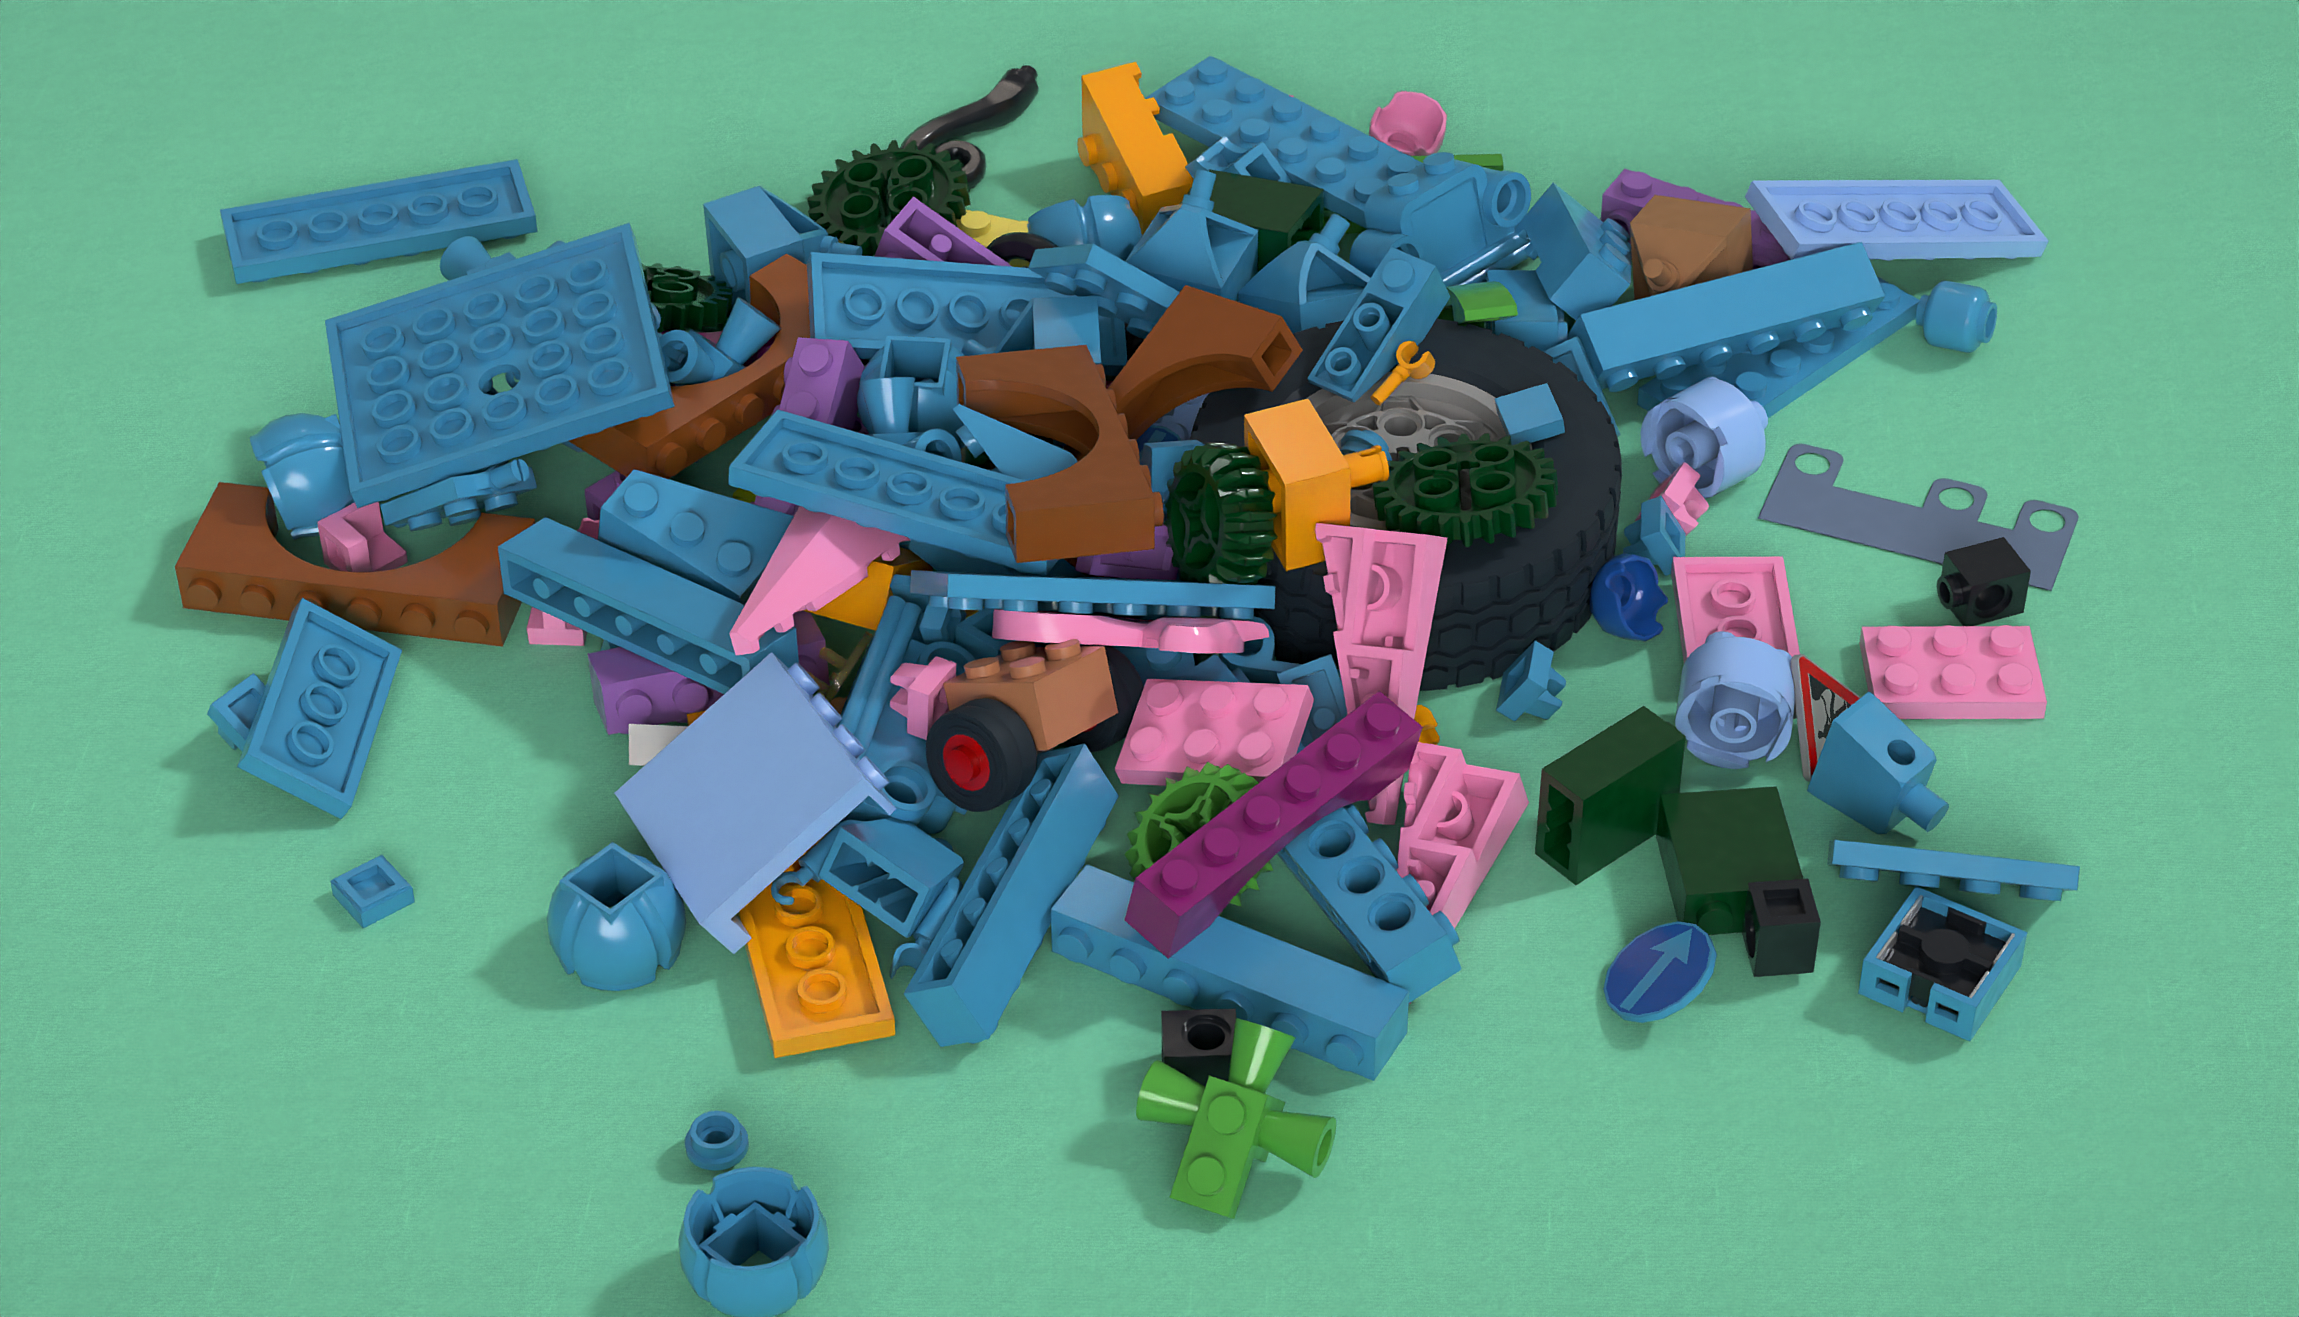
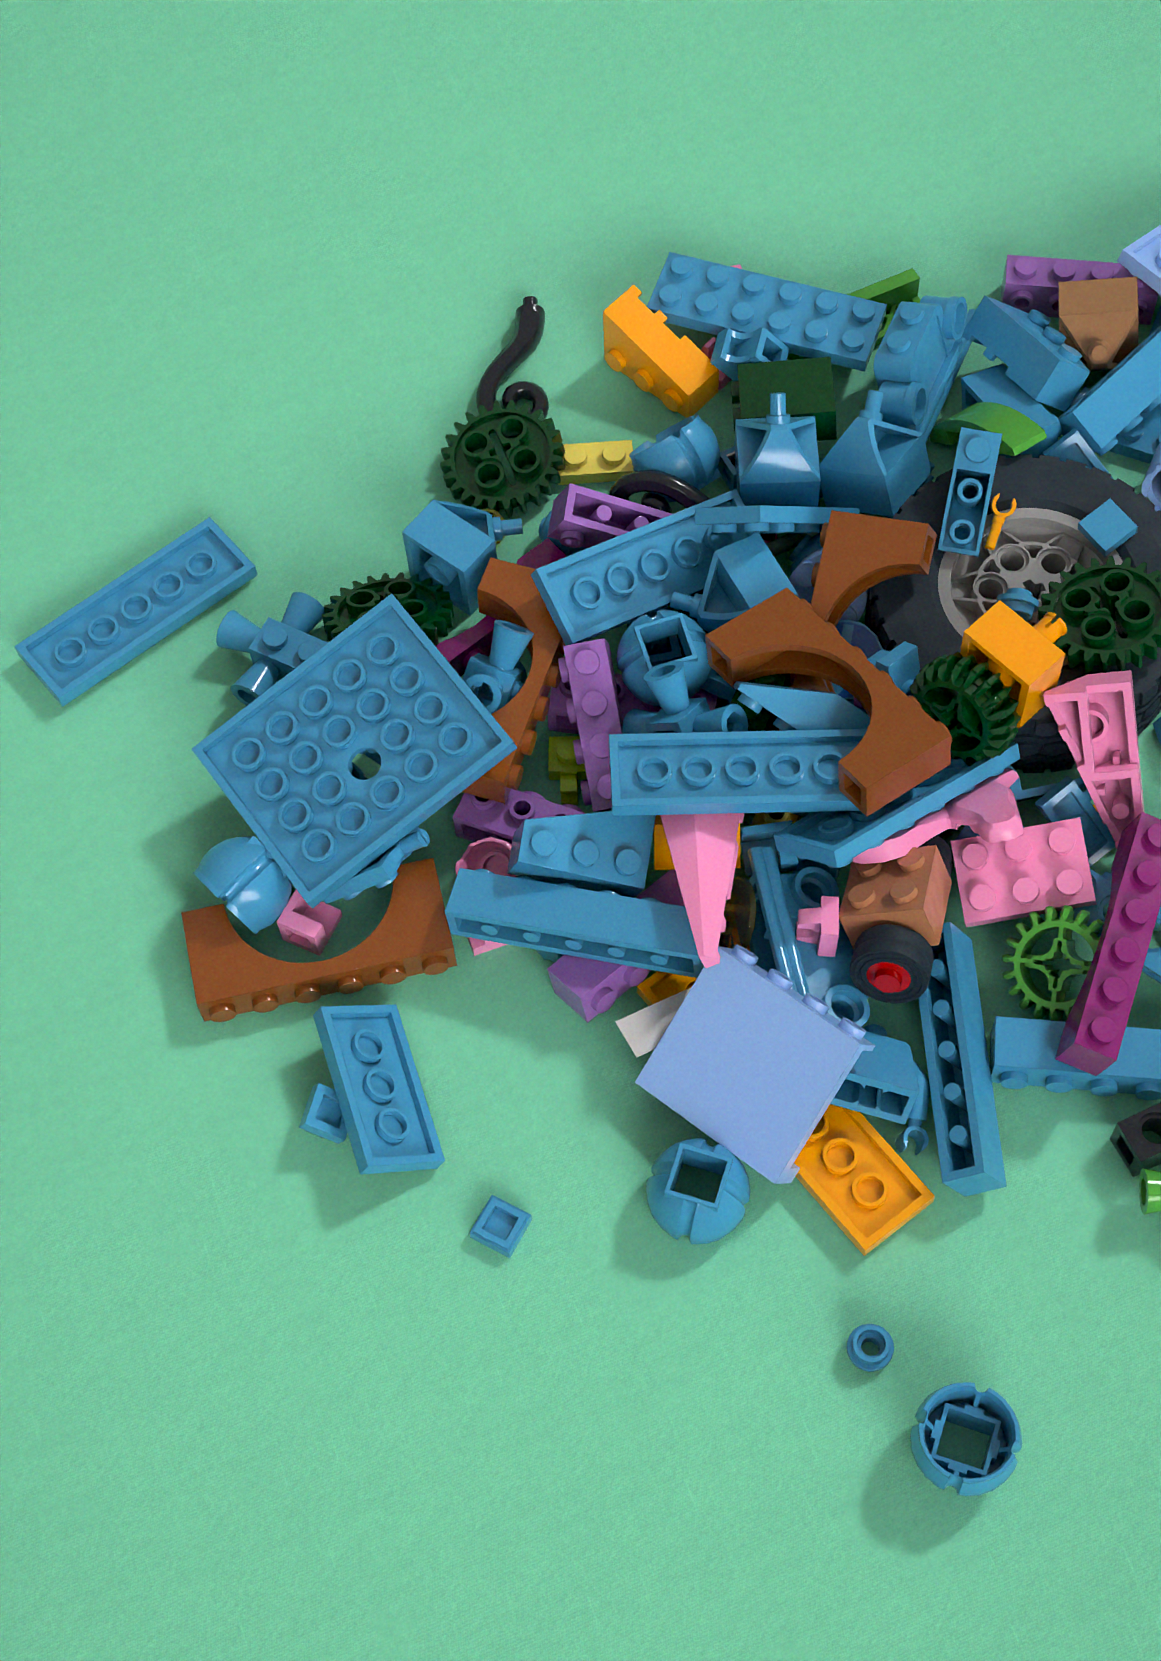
camera: 20 degrees left, 20 degrees up
(1410, 124) = (829, 262): bright pink hair -> none

